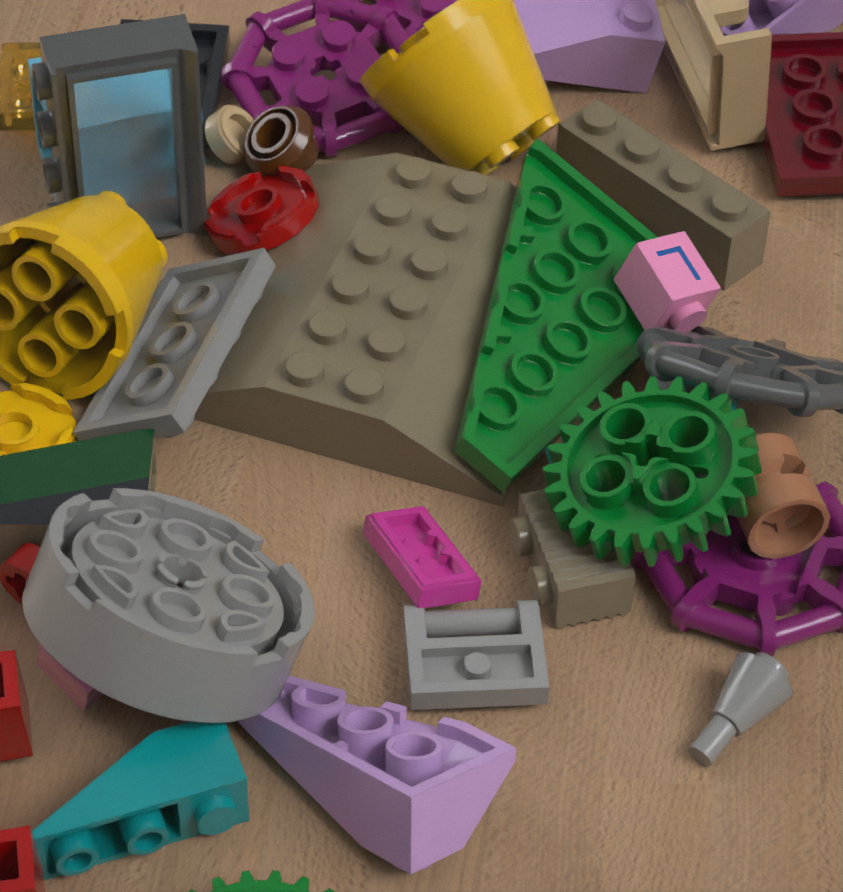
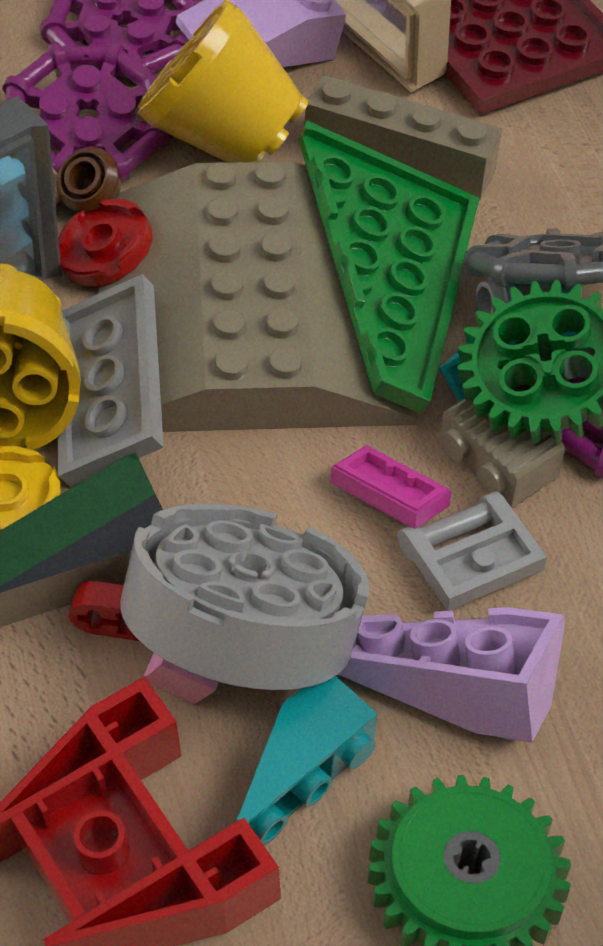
camera: 25 degrees left, 5 degrees up
(667, 283) = (461, 210): bright pink brick -> none

